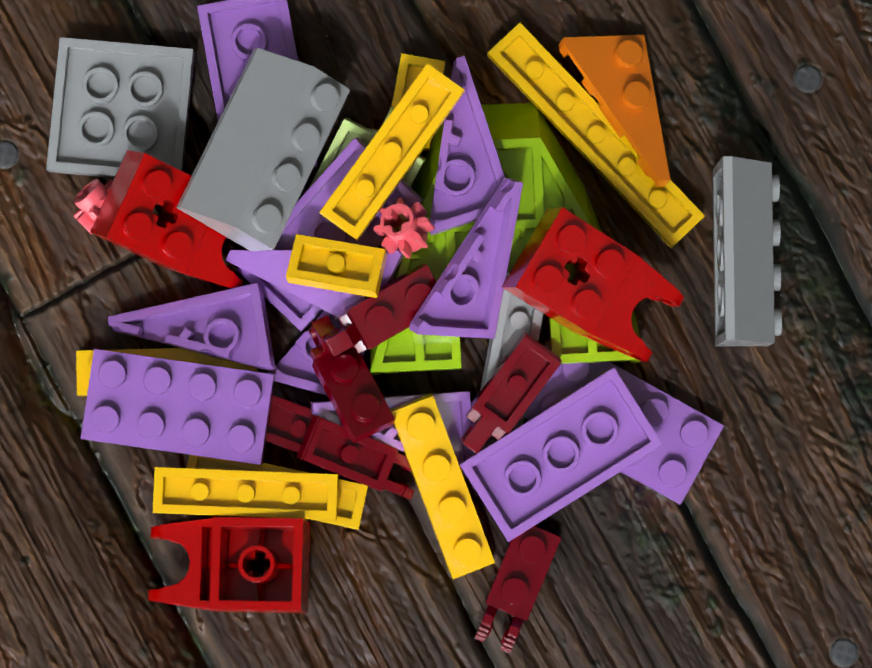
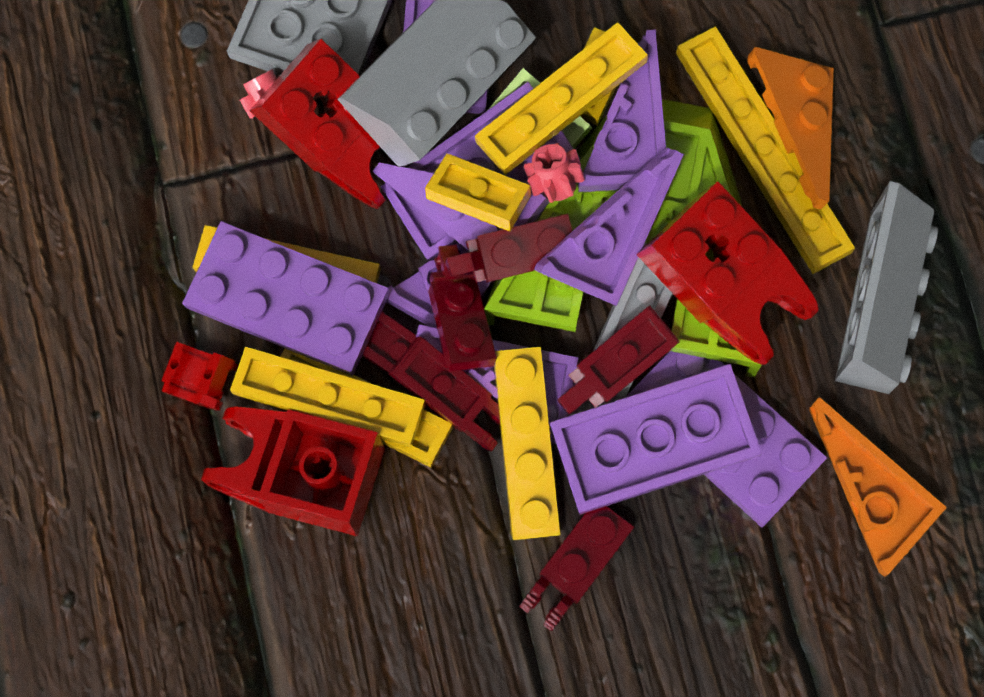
camera: 20 degrees right, 10 degrees down
(115, 502) = (197, 376): none -> red piece
(217, 324) = (345, 231): medium lavender wing -> none
(784, 450) = (883, 497): none -> orange wing

